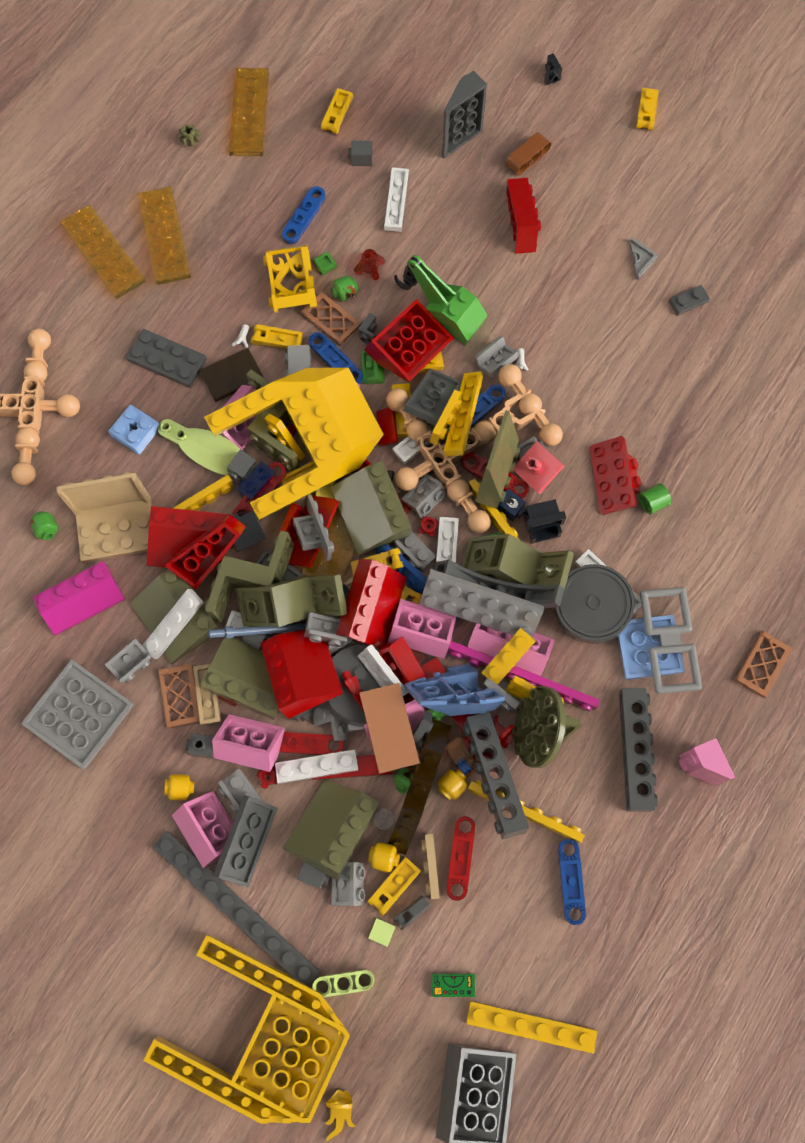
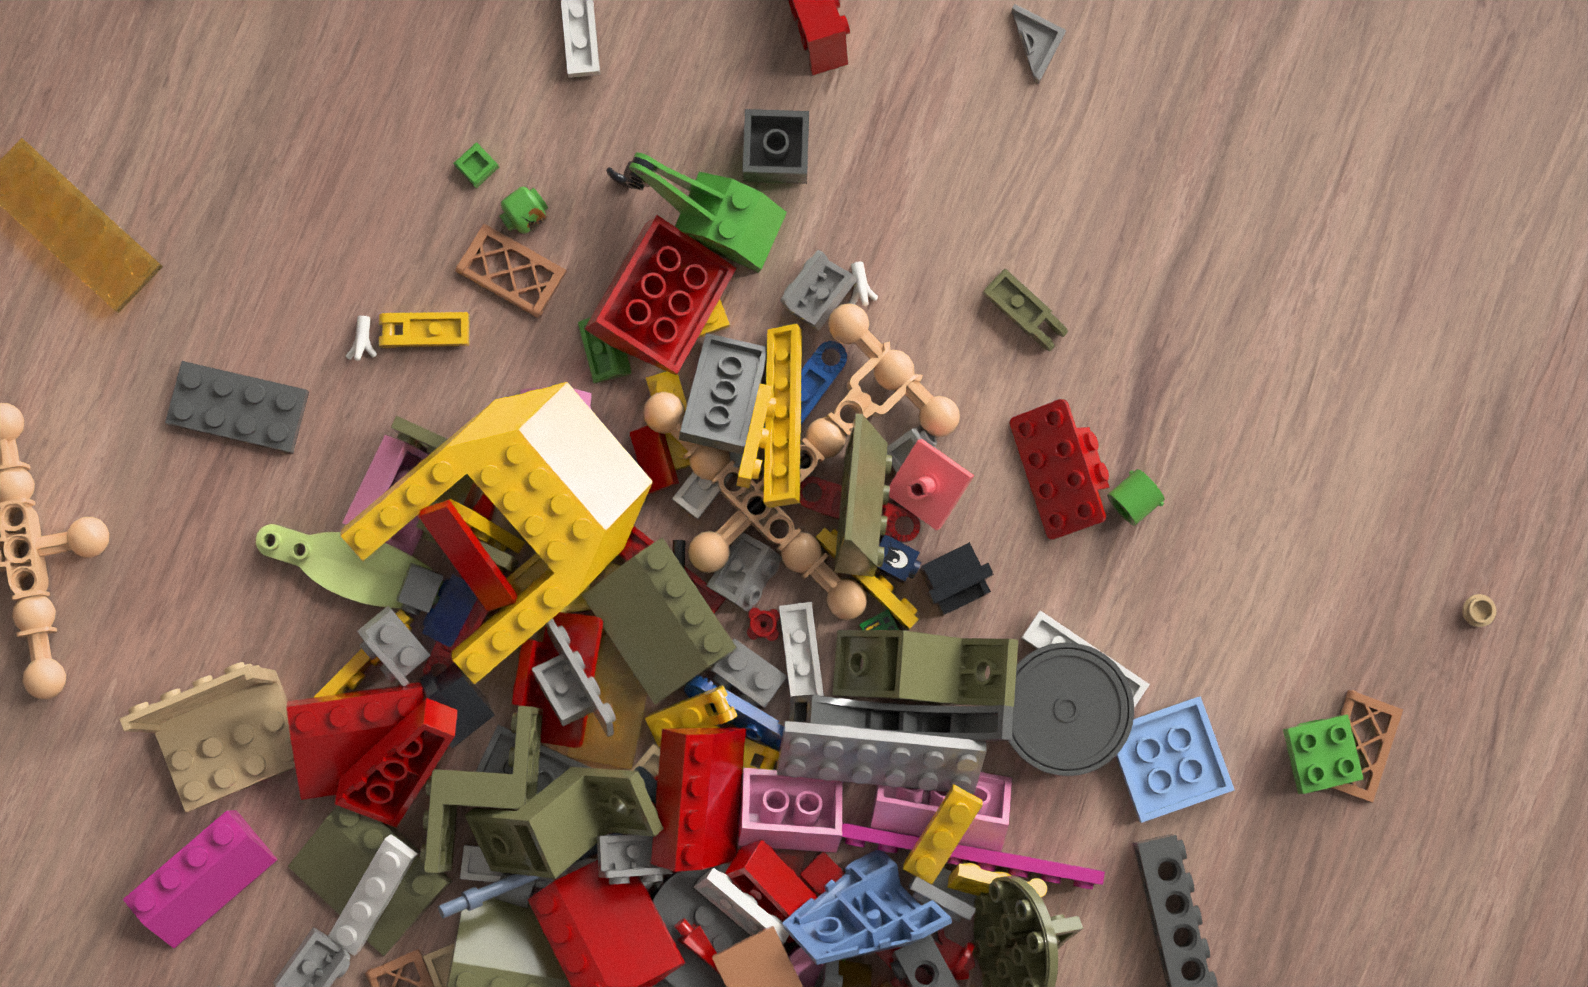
camera: 15 degrees left, 10 degrees up
(44, 525) = (105, 764): bright green head -> none
(134, 439) = (195, 560): light blue brick -> none
(164, 235) = (173, 170): clear yellow plate -> none
(219, 491) = (393, 644): none -> light grey bracket
(229, 374) = (359, 415): dark brown tile -> none
(272, 446) = (468, 555): none -> red tile
(286, 297) = (459, 244): yellow fence -> none
(297, 358) = (475, 375): light grey brick -> none
(303, 215) = (416, 76): blue plate -> none
(333, 355) = (535, 348): blue plate -> none
(367, 329) = (582, 276): dark grey bracket -> none
(369, 263) = (557, 153): clear red rock -> none
(489, 280) = (775, 146): none -> dark grey brick
(609, 389) = (1023, 308): none -> olive hinge
(670, 640) = (1202, 744): light grey bar -> none
(689, 300) = (1134, 106): dark grey plate -> none
(707, 763) = (1292, 941): bright pink slope -> none
(741, 661) = (1323, 754): none -> bright green plate

